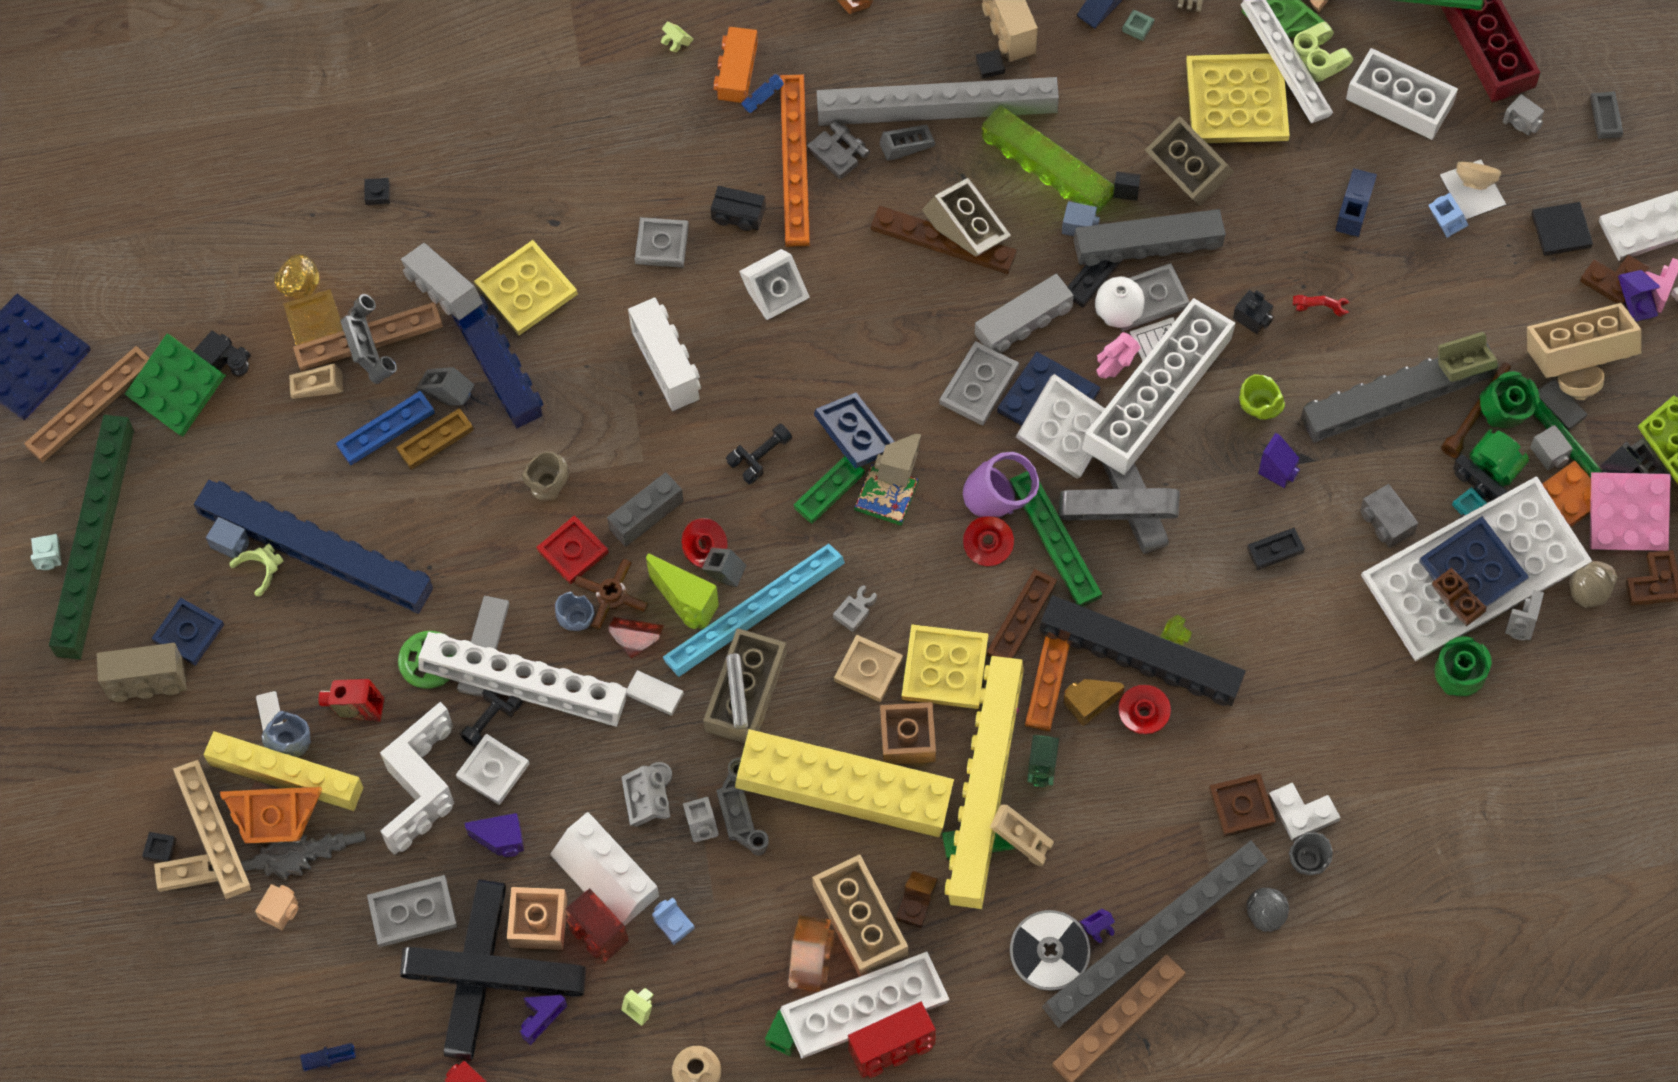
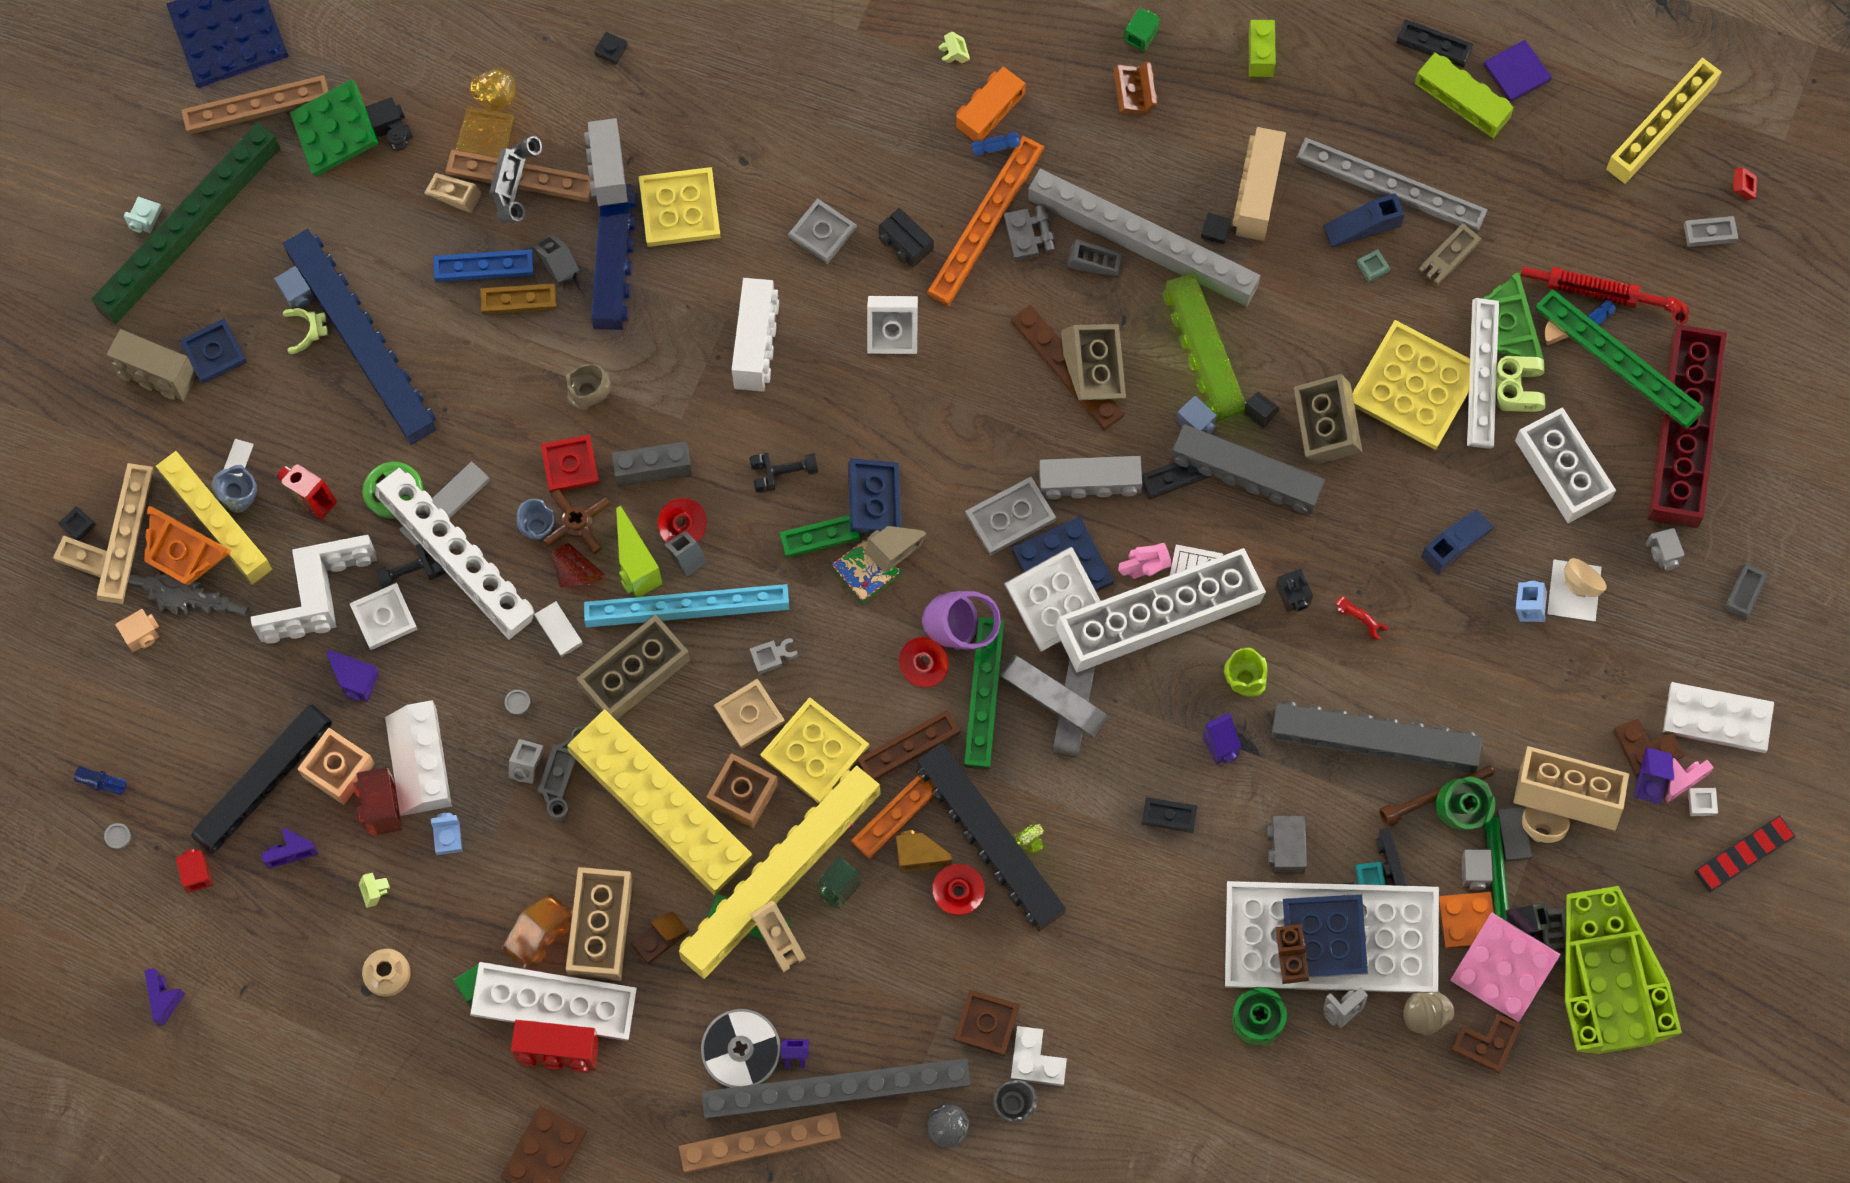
camera: 30 degrees right, 5 degrees up
(411, 911) = (242, 698): light grey plate -> none
(492, 972) = (269, 790): black beam -> none
(645, 795) = (493, 714): light grey bracket -> none
(737, 691) = (618, 669): light grey axle -> none
(1119, 302) = (1180, 513): white cylinder -> none
(1161, 293) = (1210, 521): light grey tile -> none
(1466, 357) = (1449, 742): olive bracket -> none
(1499, 457) = (1420, 850): green brick -> none
(1562, 228) = (1629, 673): black tile -> none

